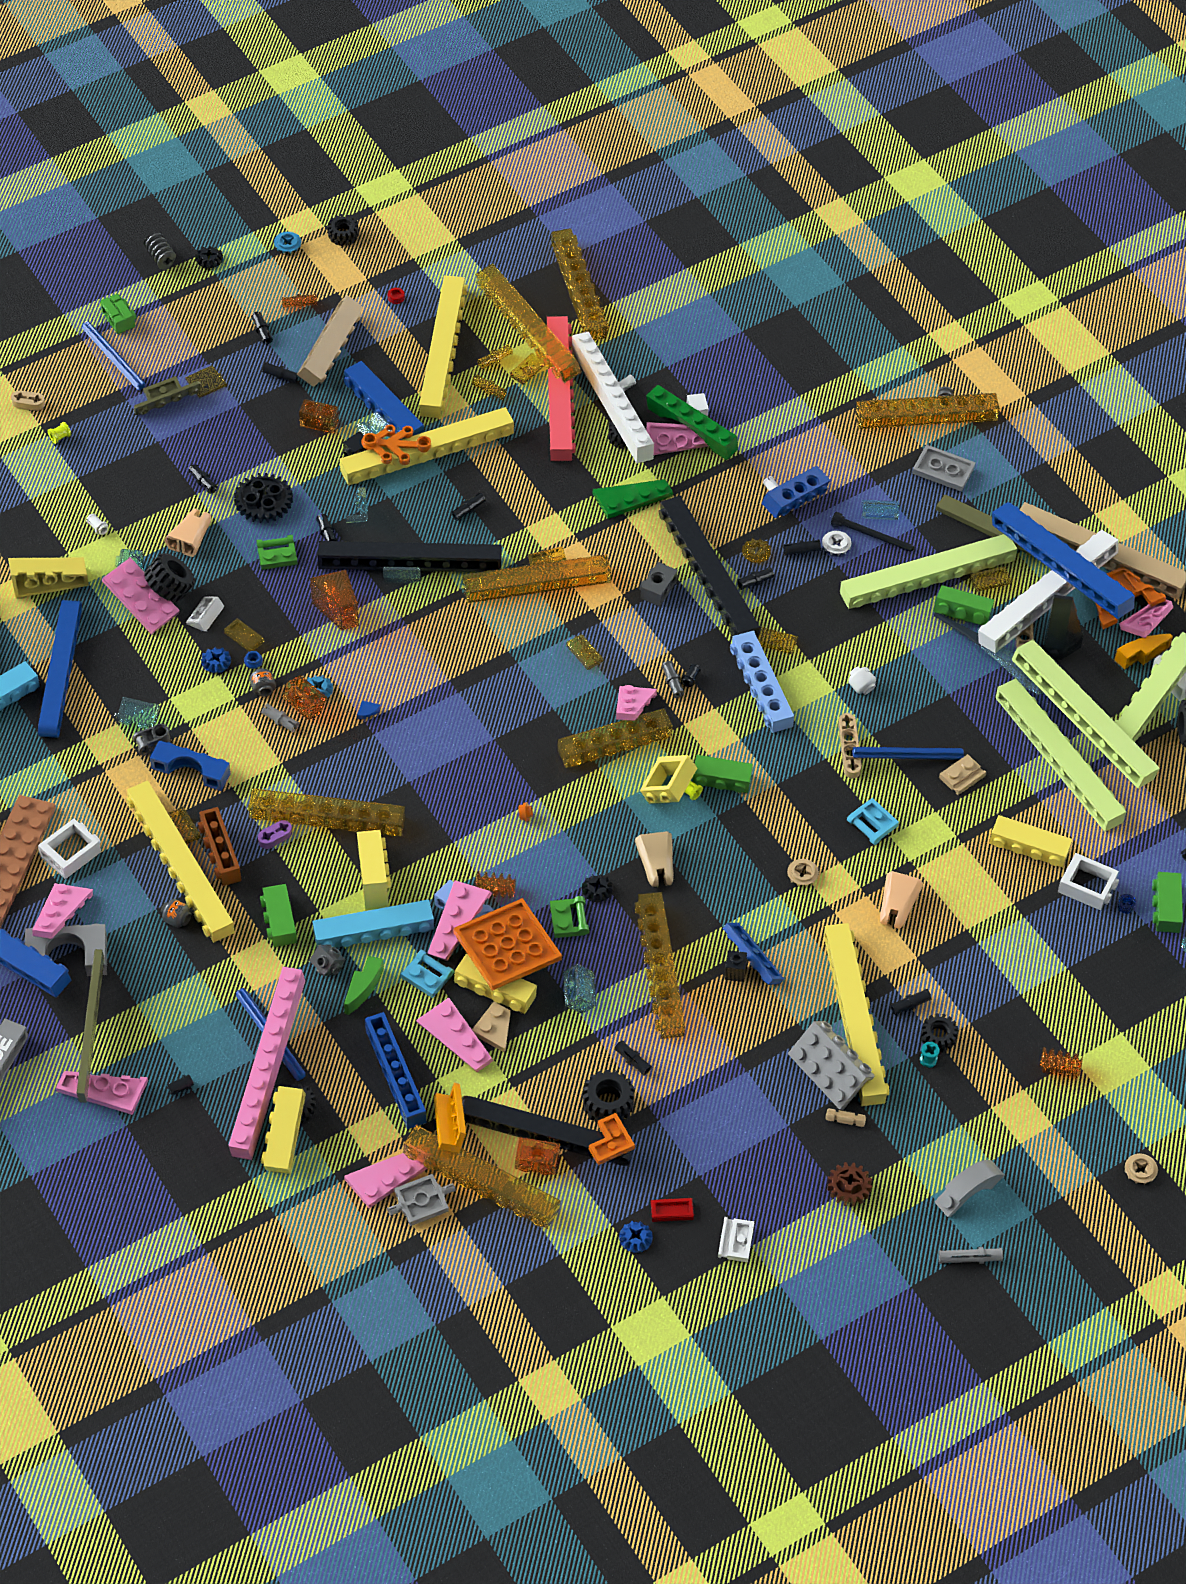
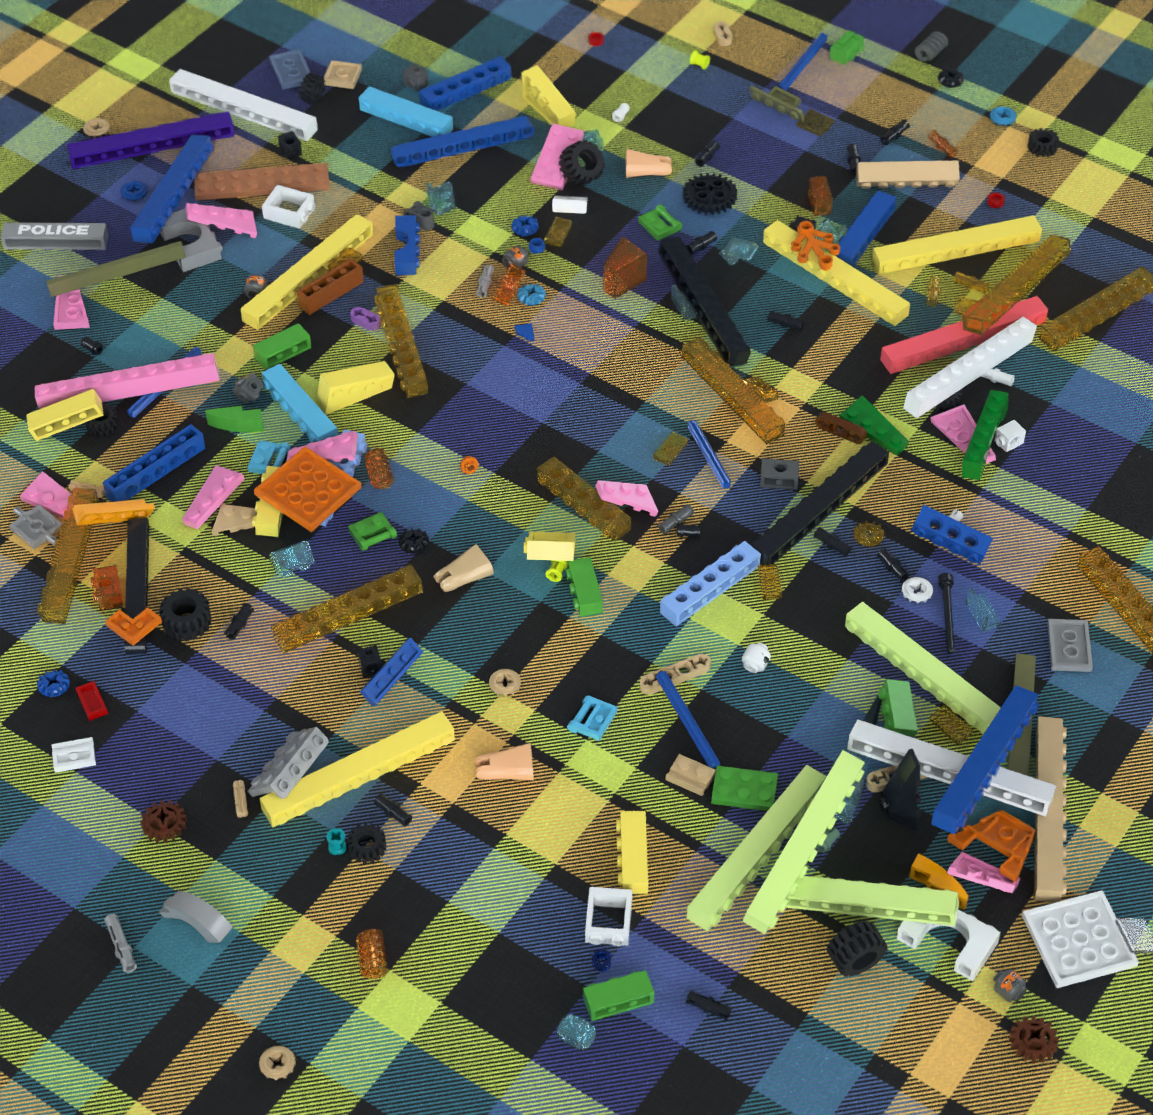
camera: 70 degrees right, 5 degrees down
(388, 1142) = (75, 484): none -> tan axle
(603, 626) = (709, 454): none -> blue axle
(625, 519) = (830, 424): none -> reddish brown beam
(993, 742) = (744, 788): none -> bright green plate

